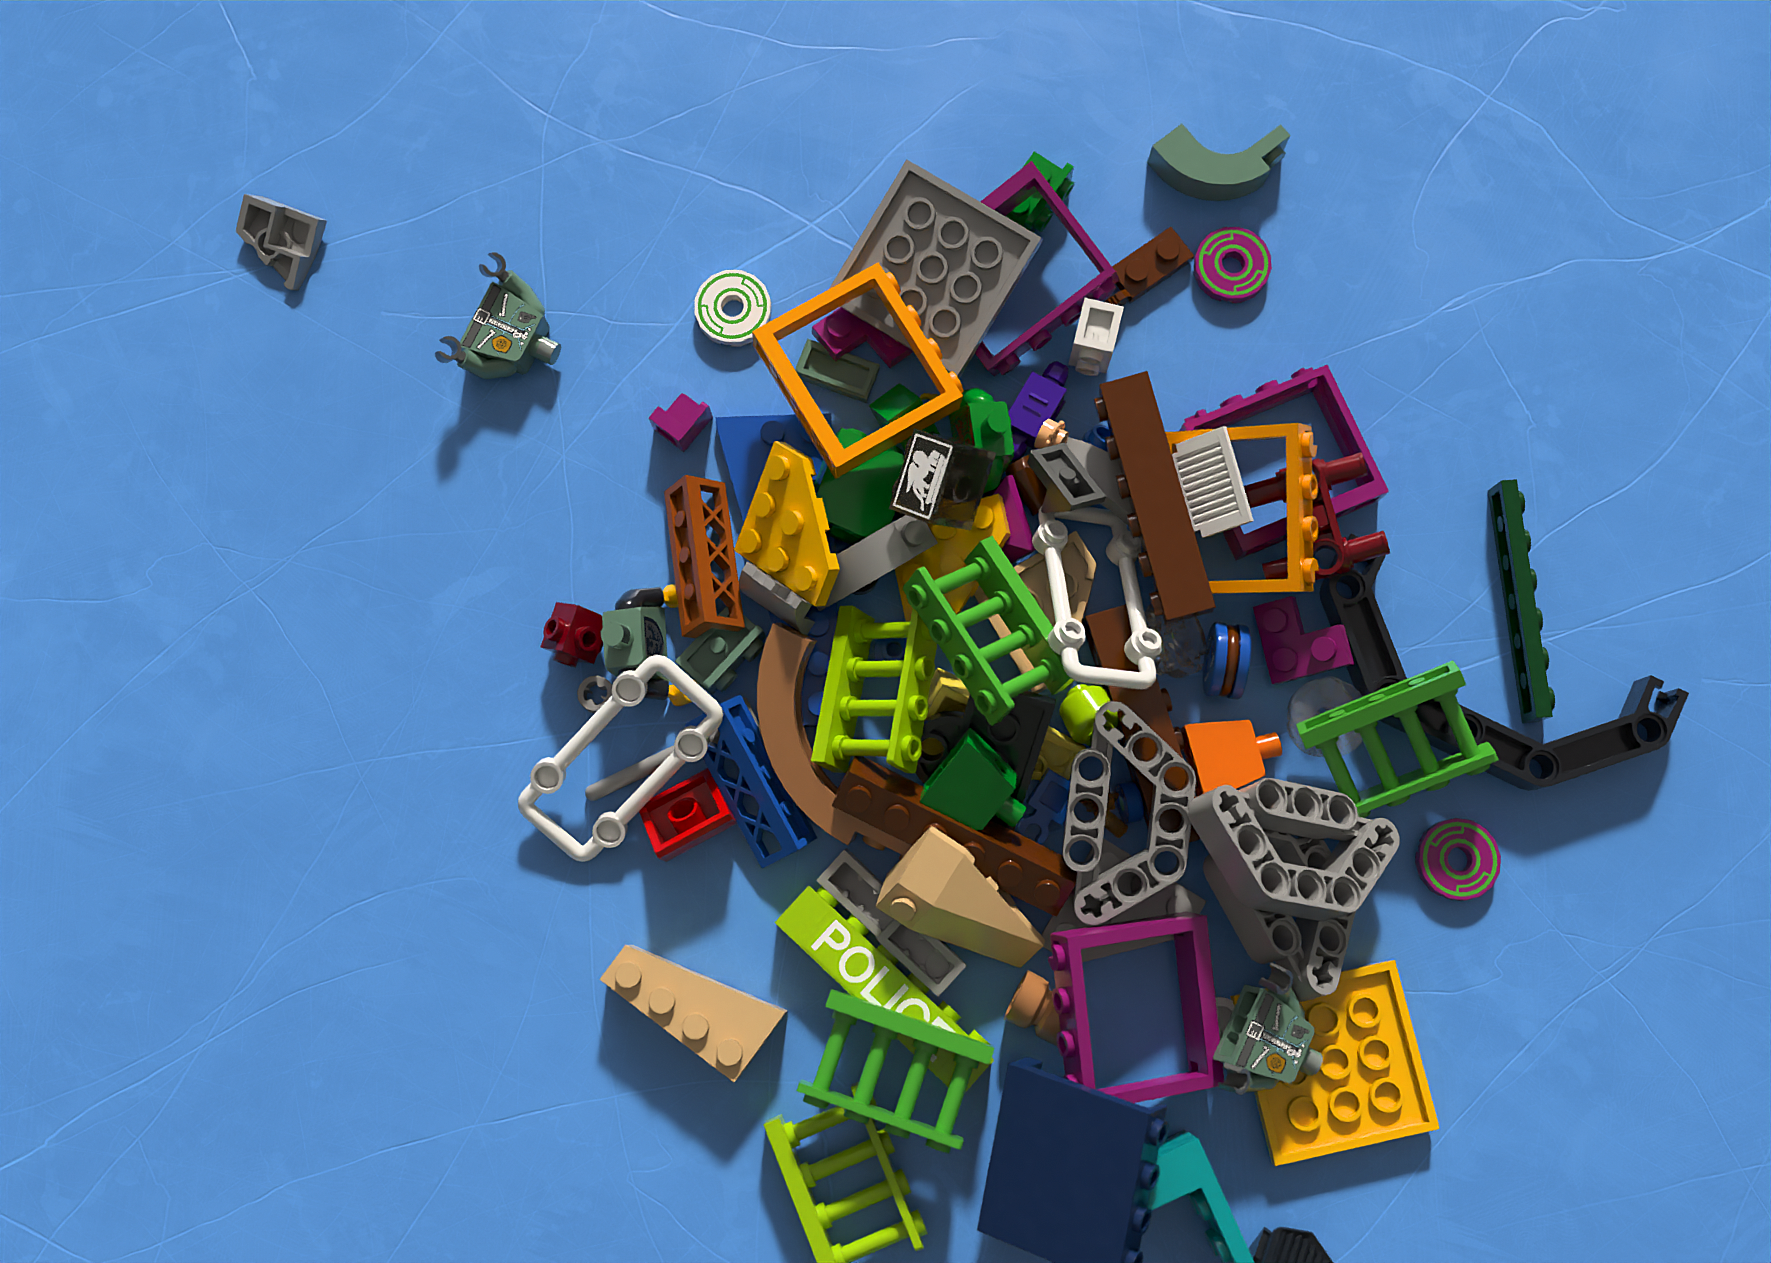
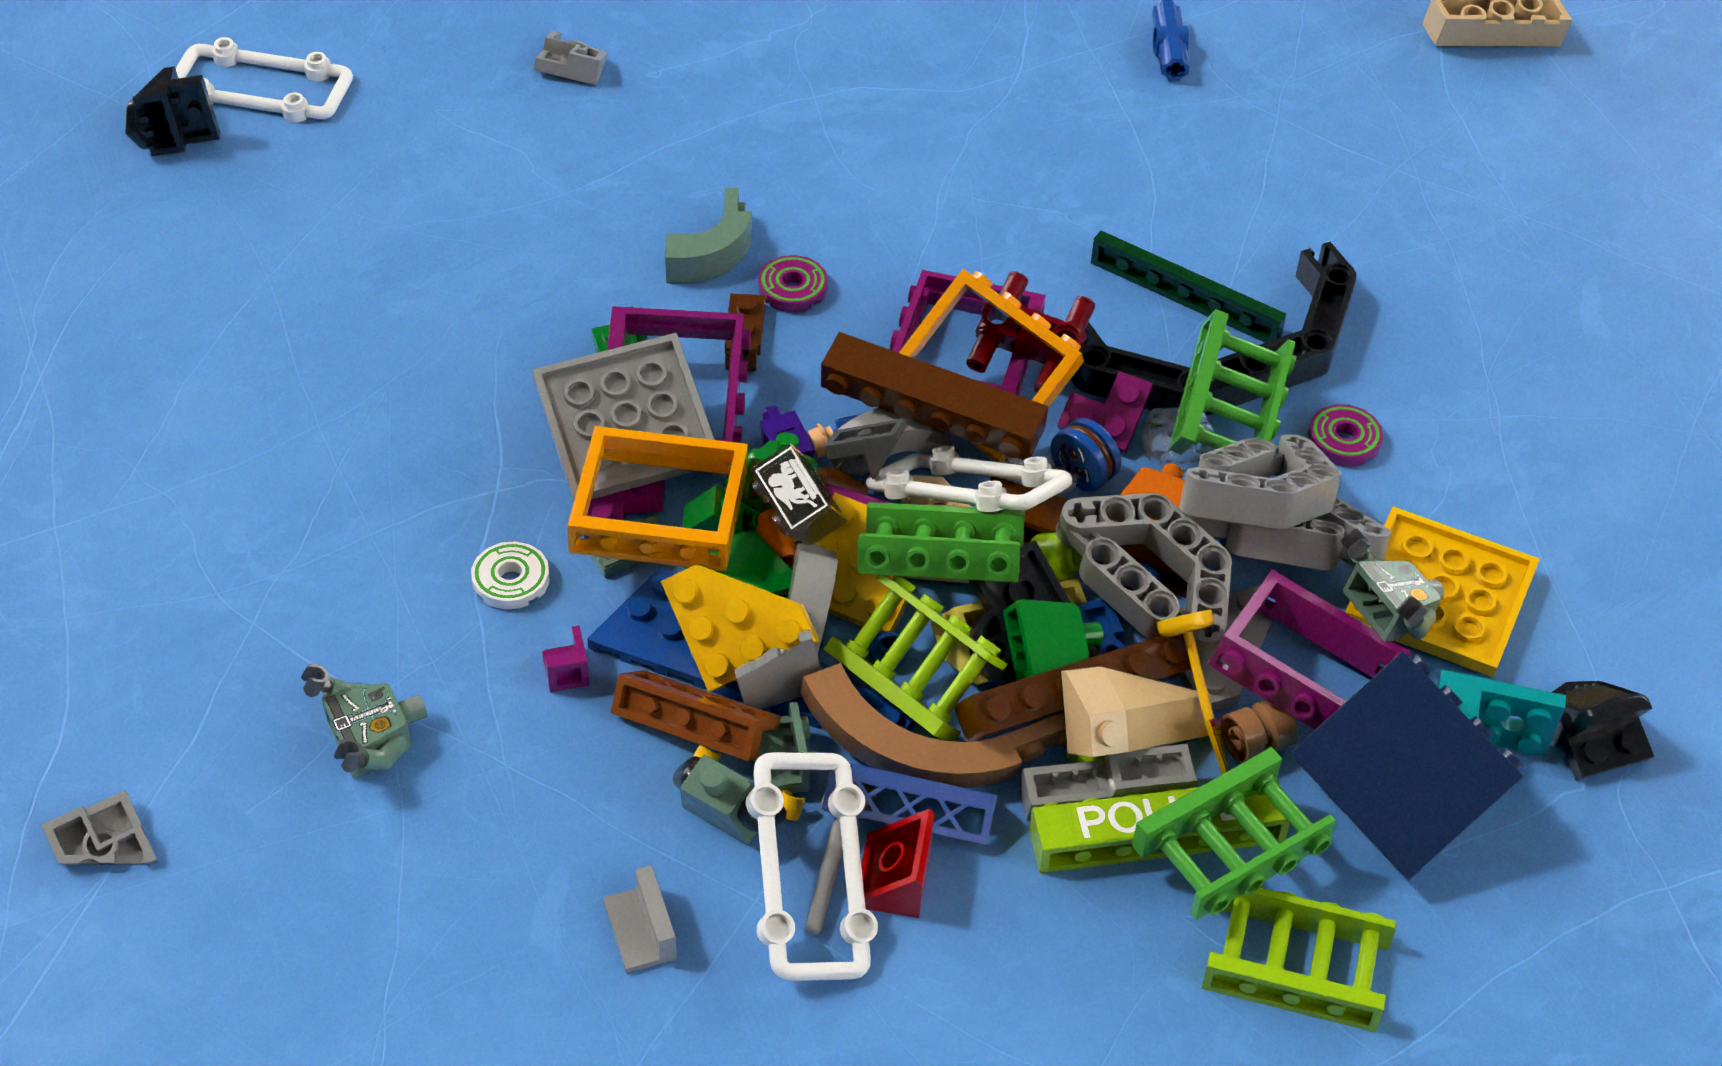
camera: 55 degrees left, 30 degrees down
(498, 667) = (641, 923): none -> light grey panel
(573, 634) = (670, 838): dark red brick -> none
(584, 688) = (739, 878): light grey bush -> none
(703, 1014) = (1065, 962): tan wedge -> none
(1067, 893) = (1186, 625): none -> yellow piece
(1095, 337) = (780, 364): white bracket -> none
(1211, 483) = (956, 351): white window -> none

